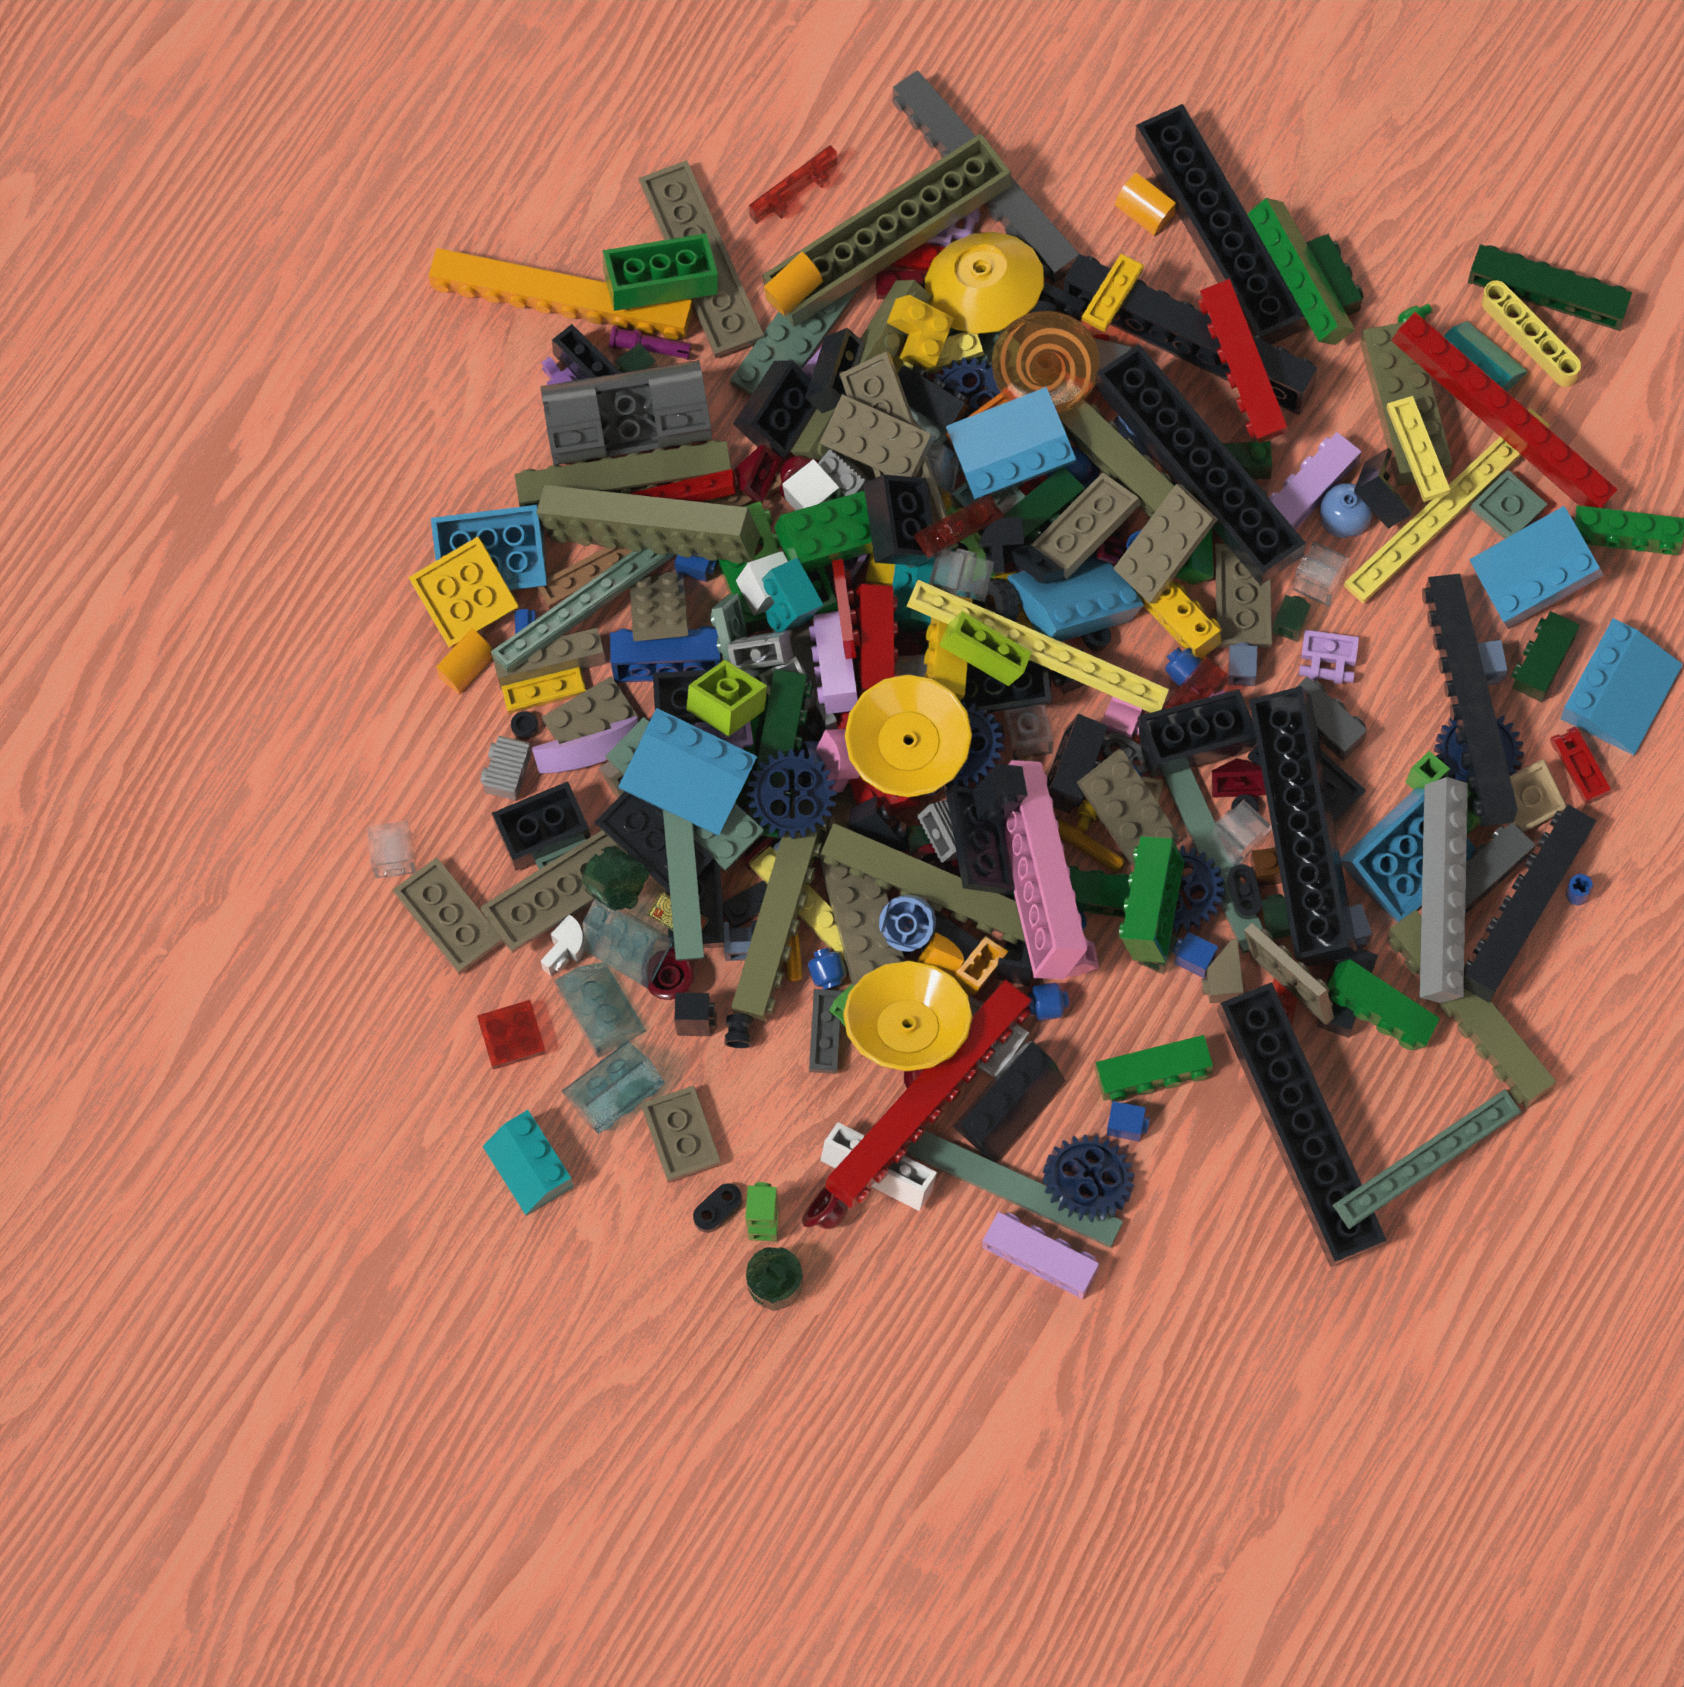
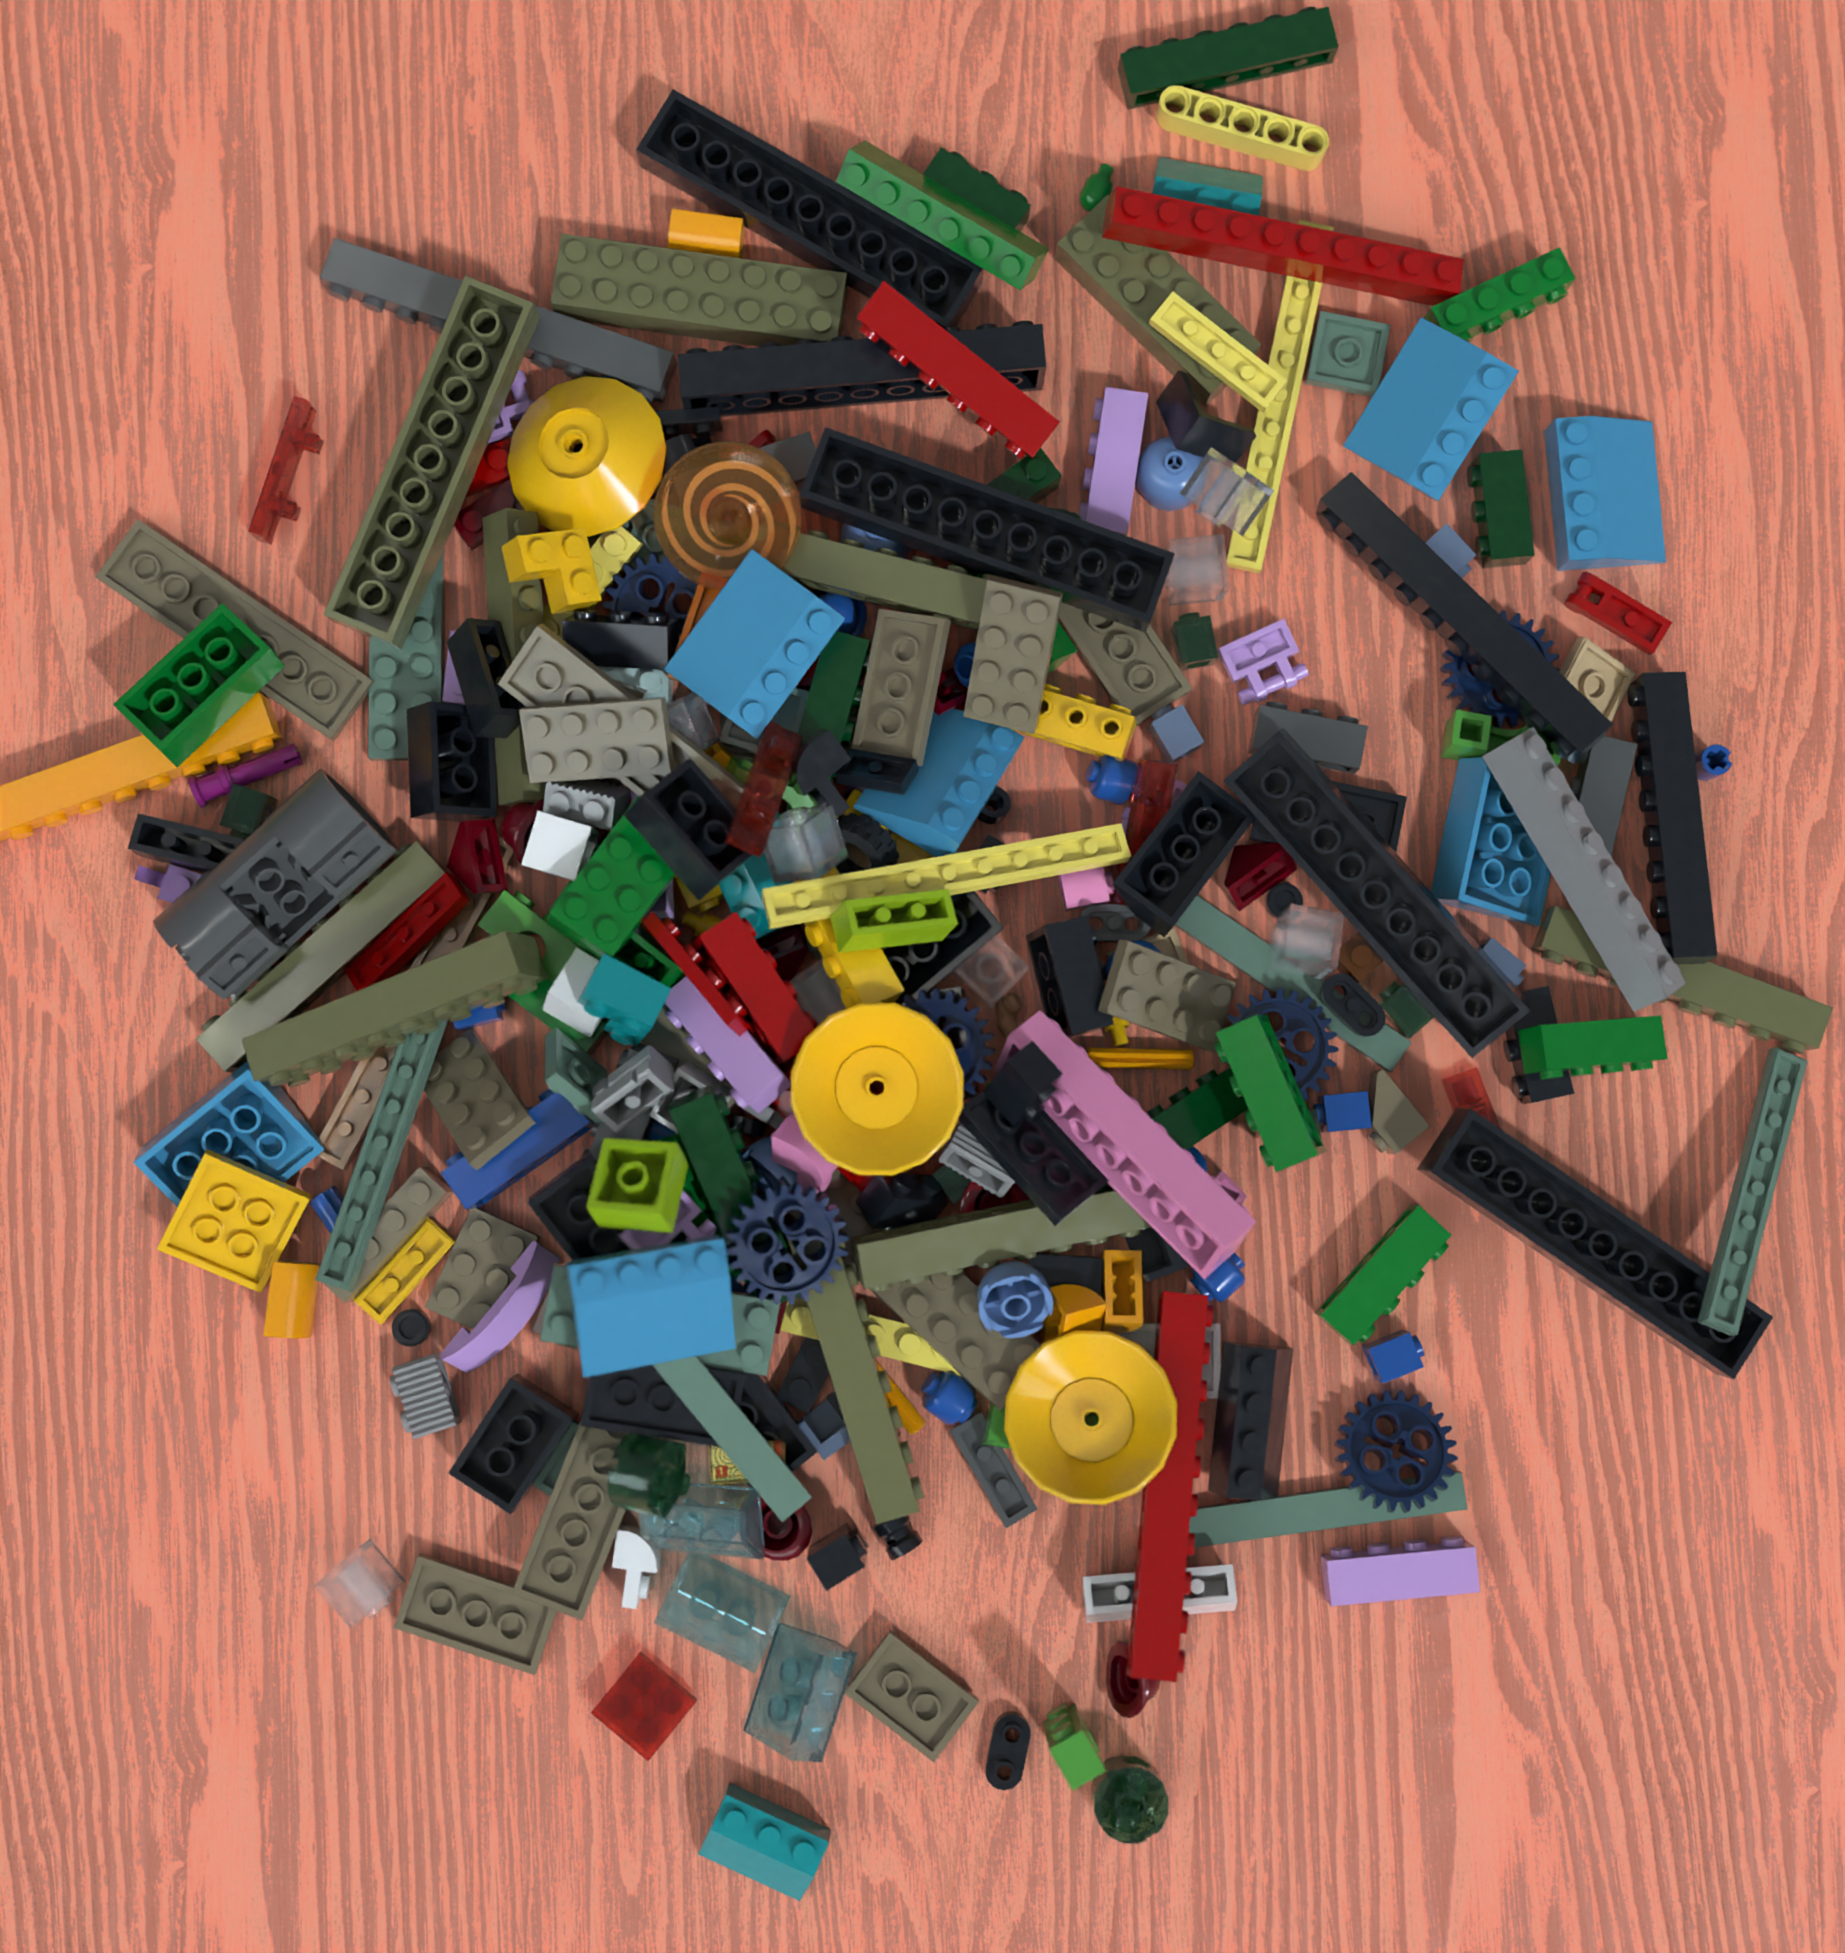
camera: 40 degrees left, 15 degrees up
(792, 284) = (369, 606): light orange brick -> none
(1112, 292) = (749, 379): yellow tile -> none
(1116, 227) = (696, 293): none -> olive brick
(1288, 973) = (1458, 1071): dark tan plate -> none
(1370, 537) = (1226, 492): none -> clear head

